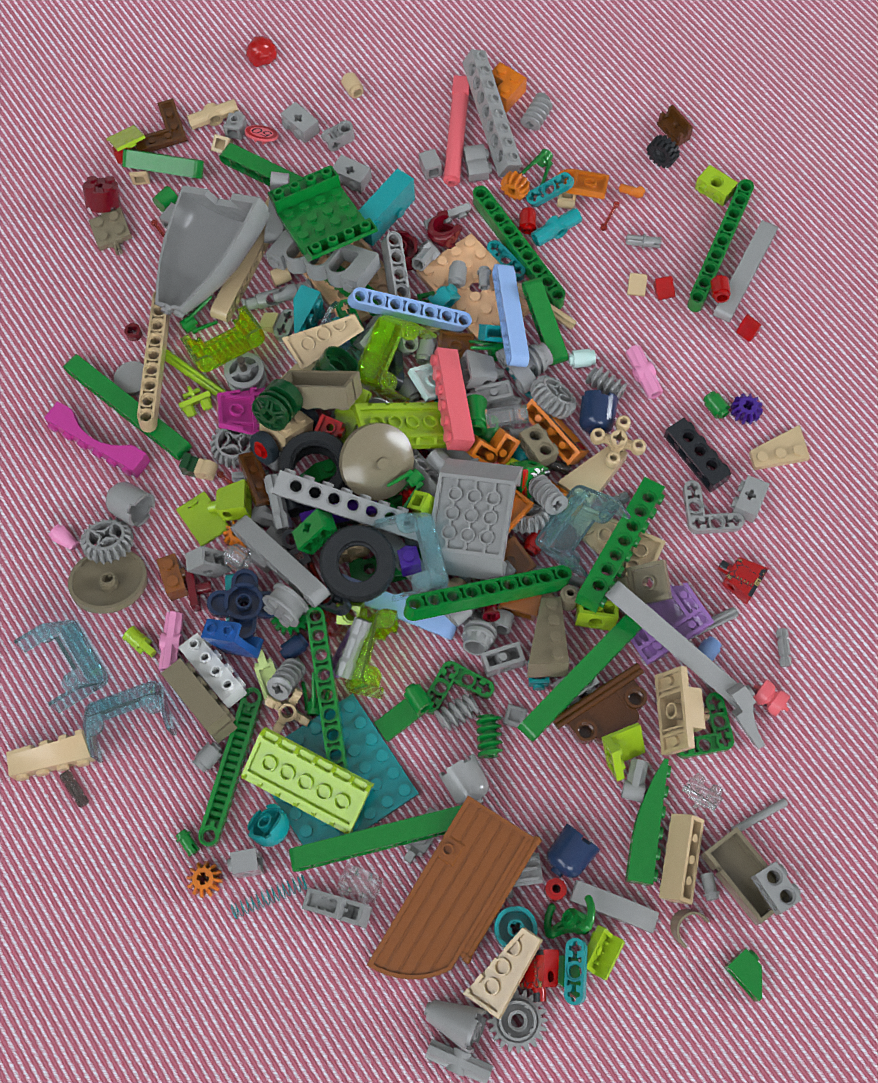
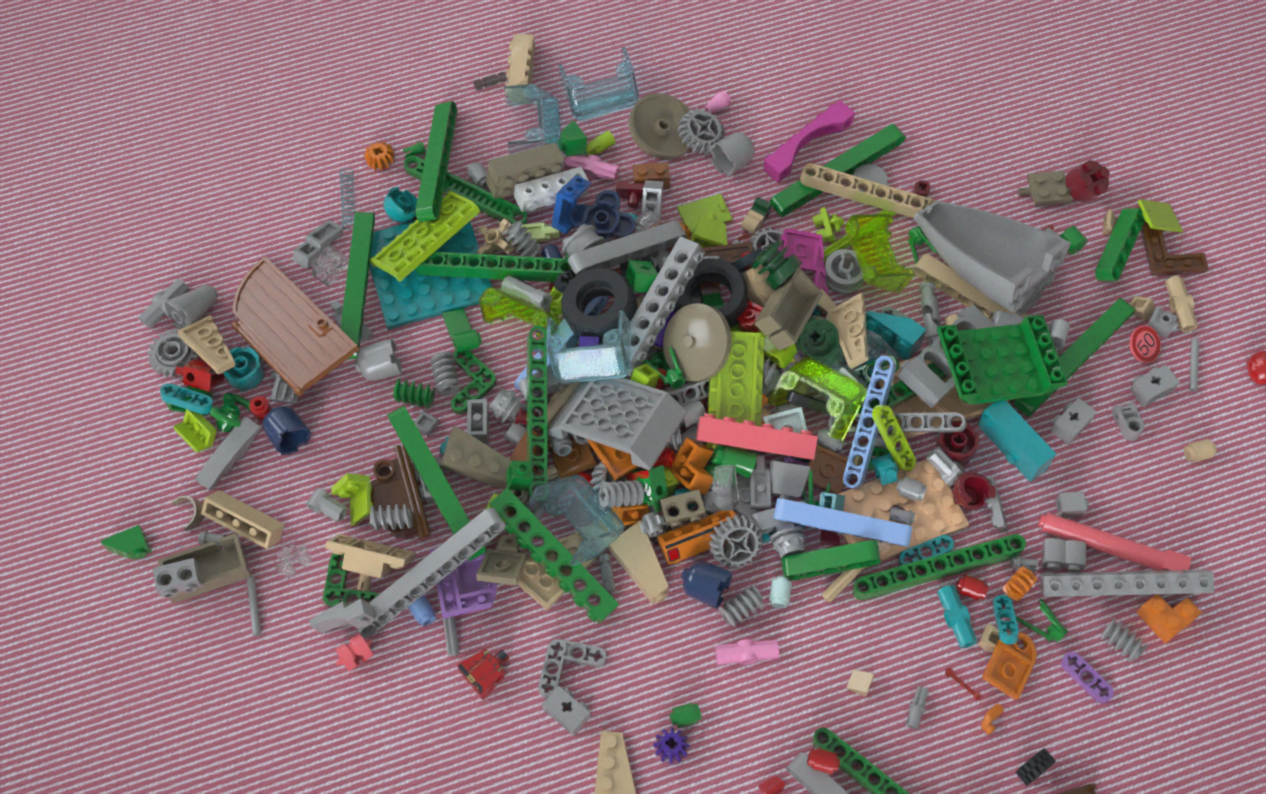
camera: 105 degrees right, 5 degrees down
(145, 664) = (573, 140): none -> green slope
(205, 801) = (436, 162): none -> green beam
(246, 863) = (376, 182): light grey brick -> none
(269, 100) = (1194, 365): none -> light grey piece
(269, 321) = (904, 306): tan slope -> none
(418, 289) = (896, 435): none -> lime beam
(493, 188) = (1017, 562): none -> light grey pin
(558, 590) = (519, 475): none -> green brick
(560, 468) = (652, 524): none -> light grey gear
(573, 141) = (1071, 670): none -> medium lavender beam
(625, 443) = (669, 591): tan gear -> none
(638, 699) = (391, 517): none -> light grey piece
(647, 830) = (279, 500): green slope -> none
(664, 288) = (848, 711): red slope -> none
(686, 450) = (661, 658): black brick -> none
(783, 647) = (400, 688): light grey axle -> none

